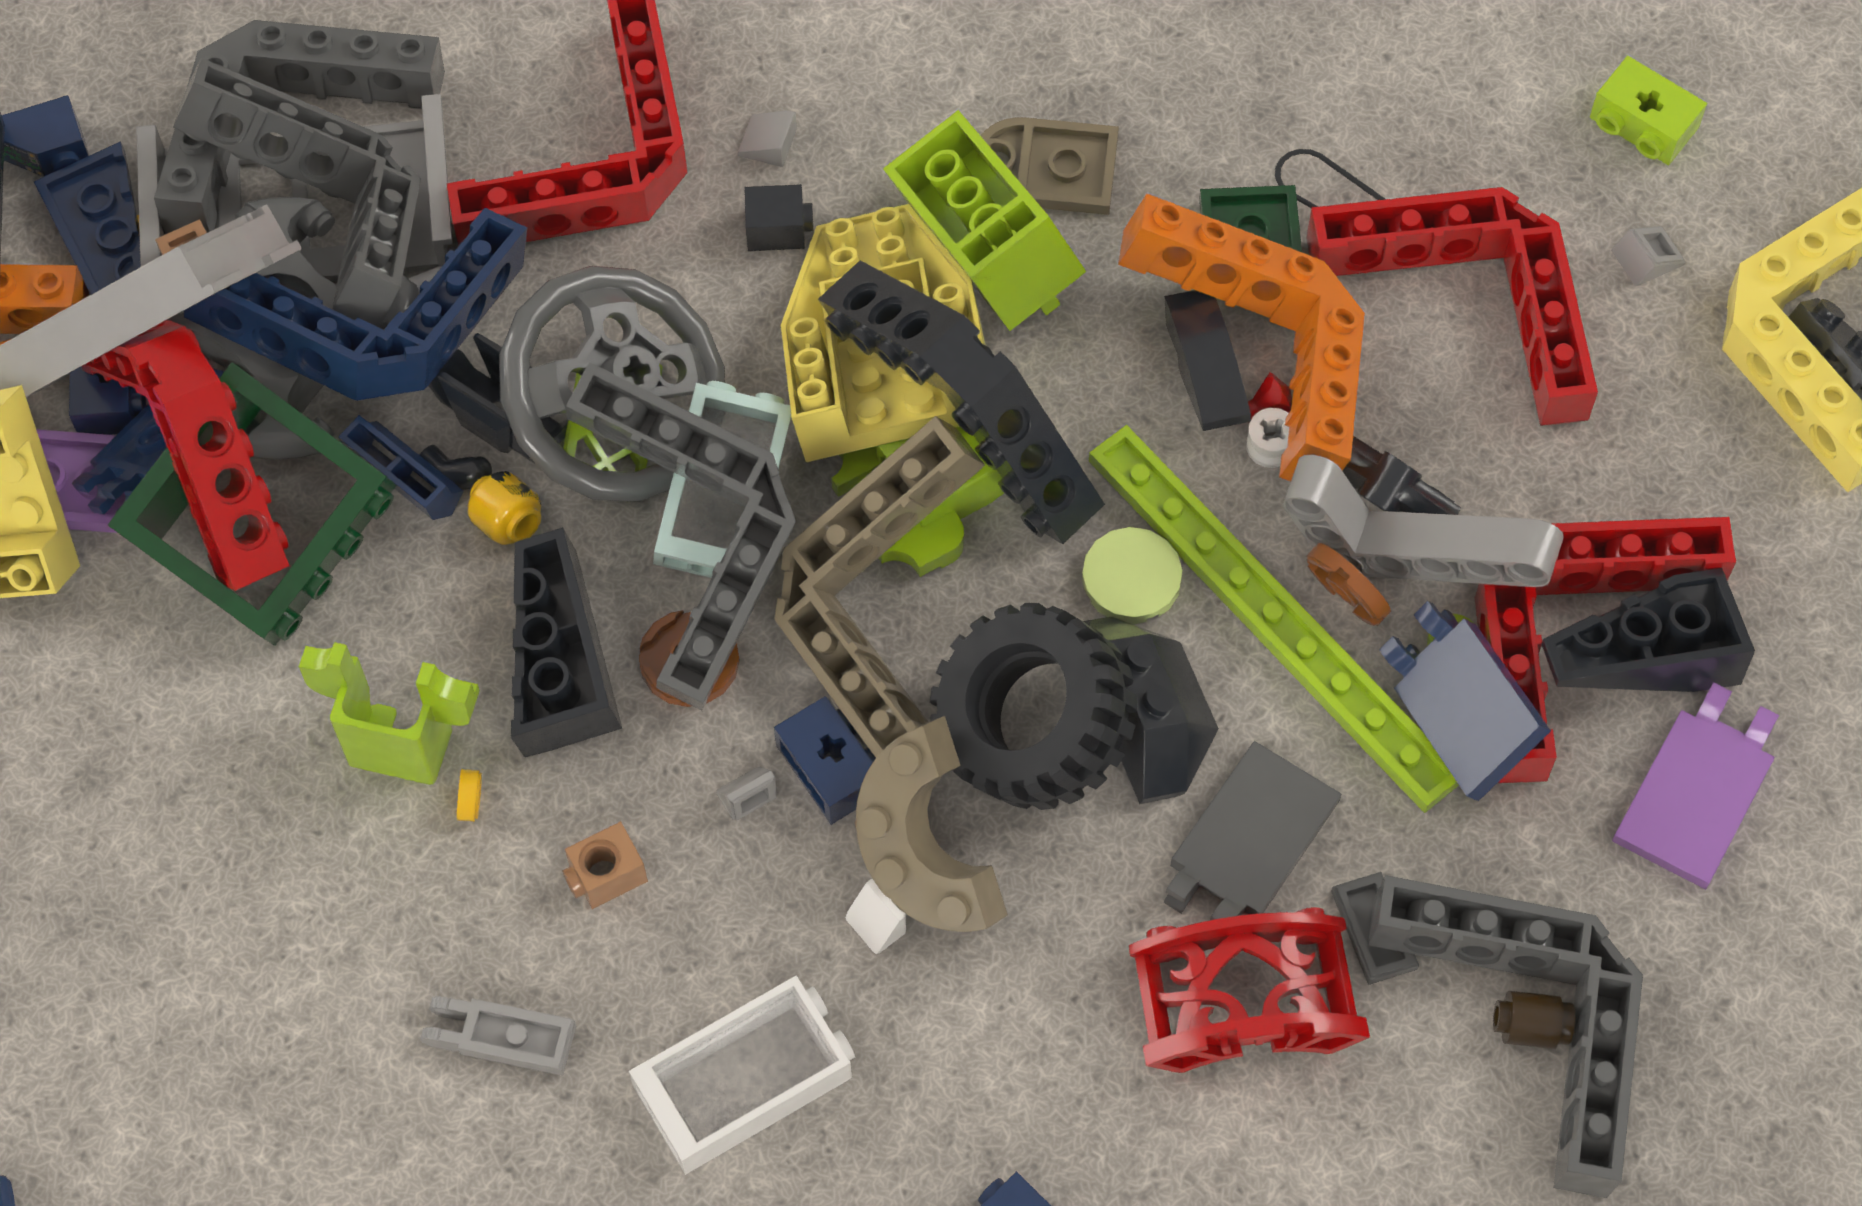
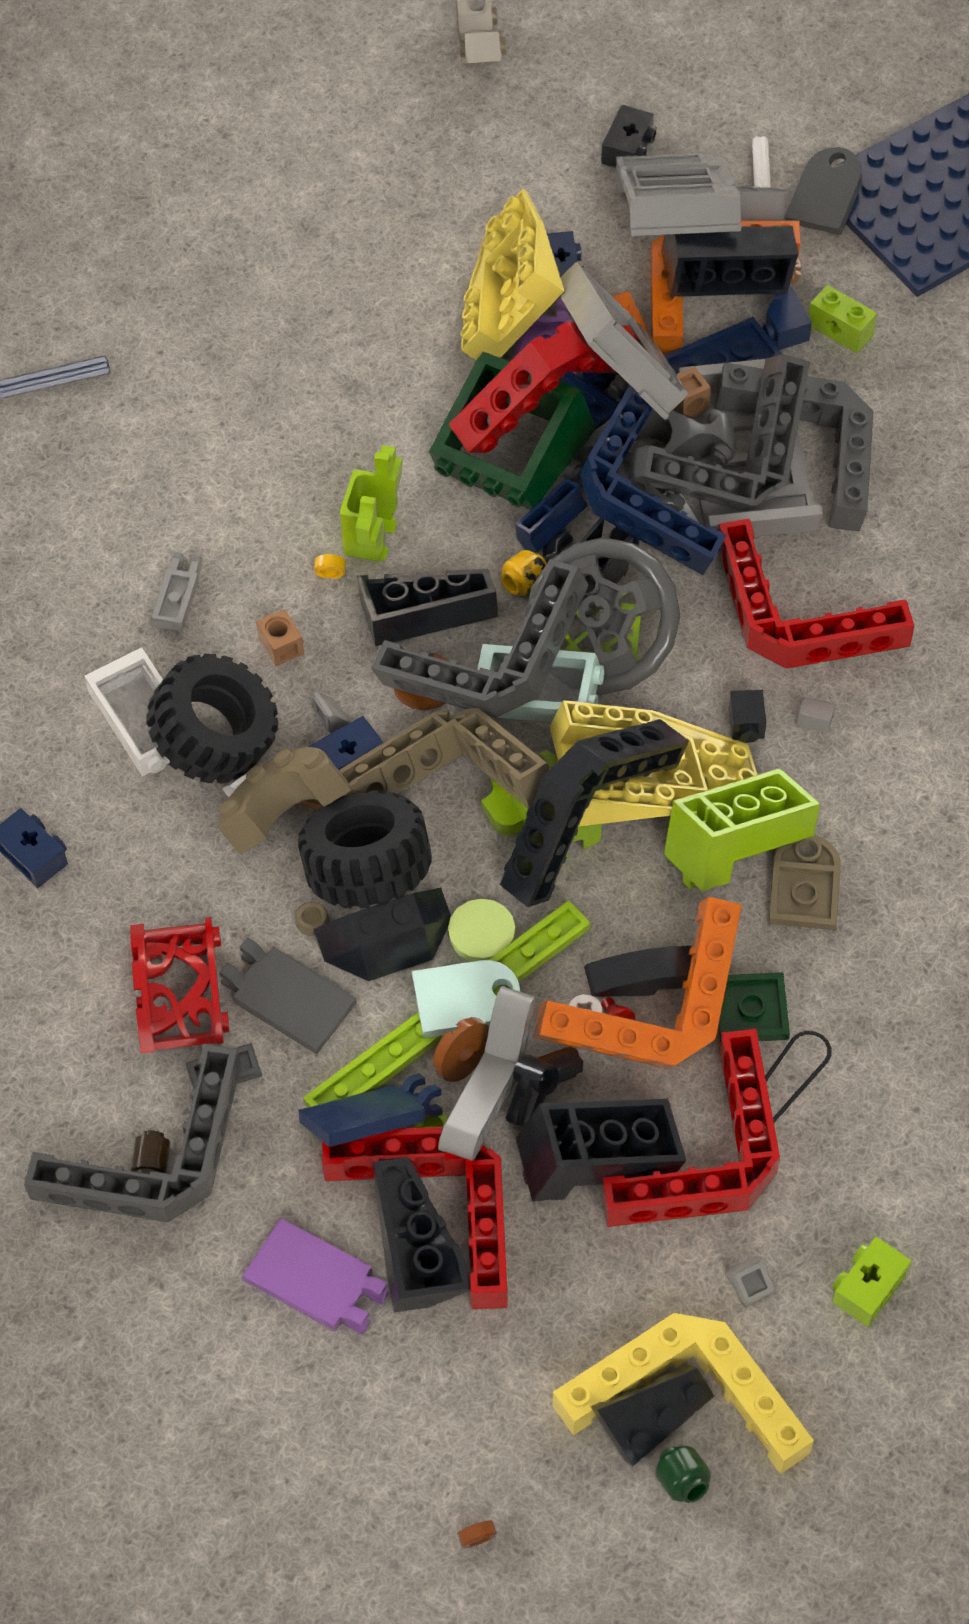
camera: 90 degrees right, 5 degrees down
(56, 59) = (842, 318): none -> lime brick
(794, 984) = (192, 744): none -> black tyre
(1114, 810) = (311, 916): none -> dark tan tile
(1259, 589) = (458, 993): none -> light aqua tile
(1500, 409) = (595, 1140): none -> black hinge

